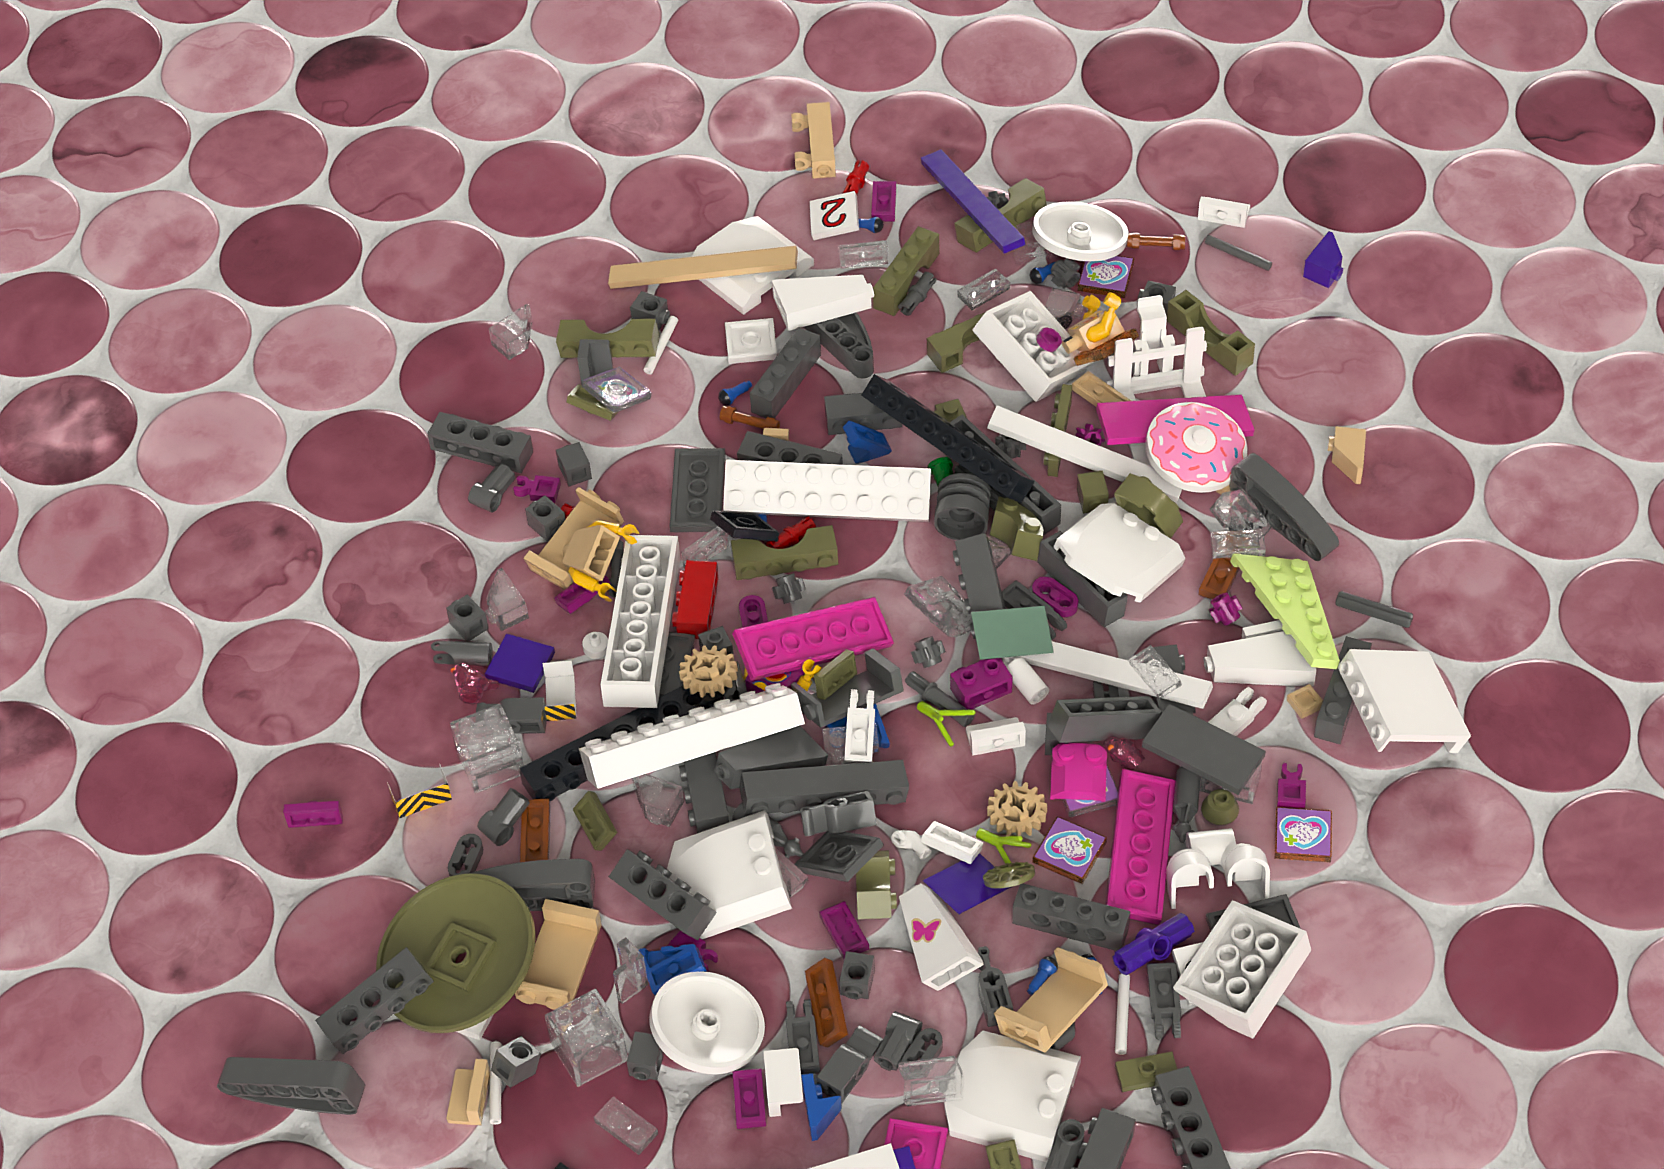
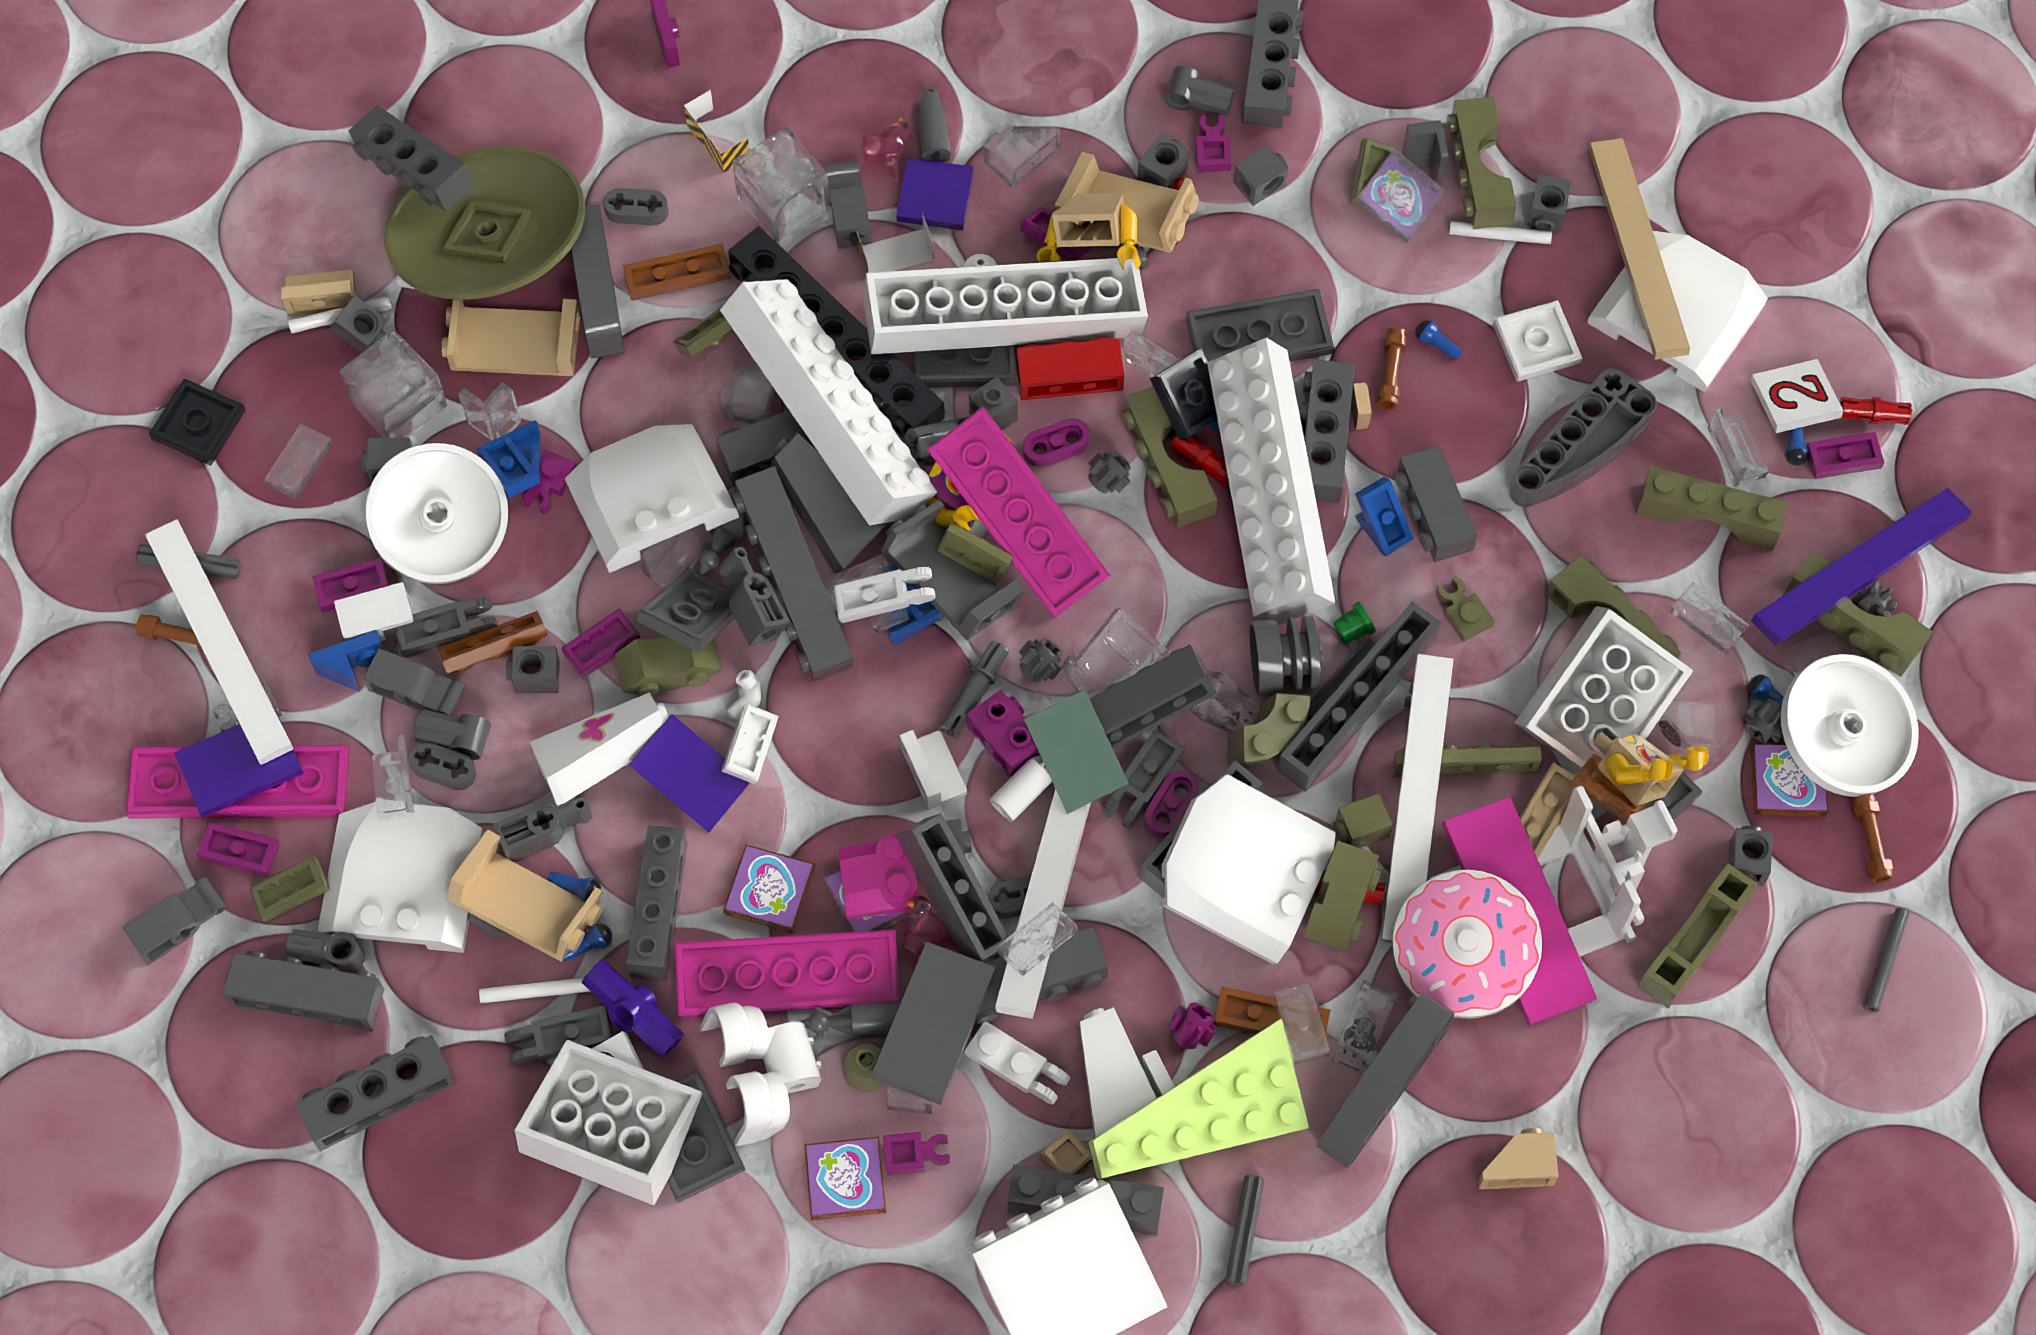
camera: 75 degrees right, 15 degrees up
(294, 1083) = (294, 108): dark grey beam -> none
(467, 618) = (980, 126): dark grey brick -> none
(499, 823) = (688, 227): dark grey piece -> none
(512, 333) = (1468, 52): clear slope -> none
(630, 874) = (603, 424): dark grey brick -> none
(708, 671) = (933, 398): tan gear -> none
(785, 373) = (1478, 392): dark grey brick -> none
(820, 138) = (1940, 347): tan brick -> none
(820, 298) = (1603, 400): white slope -> none
(917, 293) = (1677, 532): dark grey pin -> none
(937, 716) = (942, 689): lime plant -> none
(948, 438) = (1377, 606): black brick -> none
(998, 842) = (763, 800): lime plant -> none
(1009, 875) = (702, 816): olive wheel -> none
(1017, 809) = (822, 801): tan gear -> none
(1049, 339) = (1606, 710): magenta tile -> none
(1089, 432) = (1455, 798): magenta gear -> none
(1141, 1071) = (455, 1031): olive plate -> none
(1223, 211) = (1968, 927): white panel -> none
(1324, 262) = (1896, 1084): dark purple slope -> none

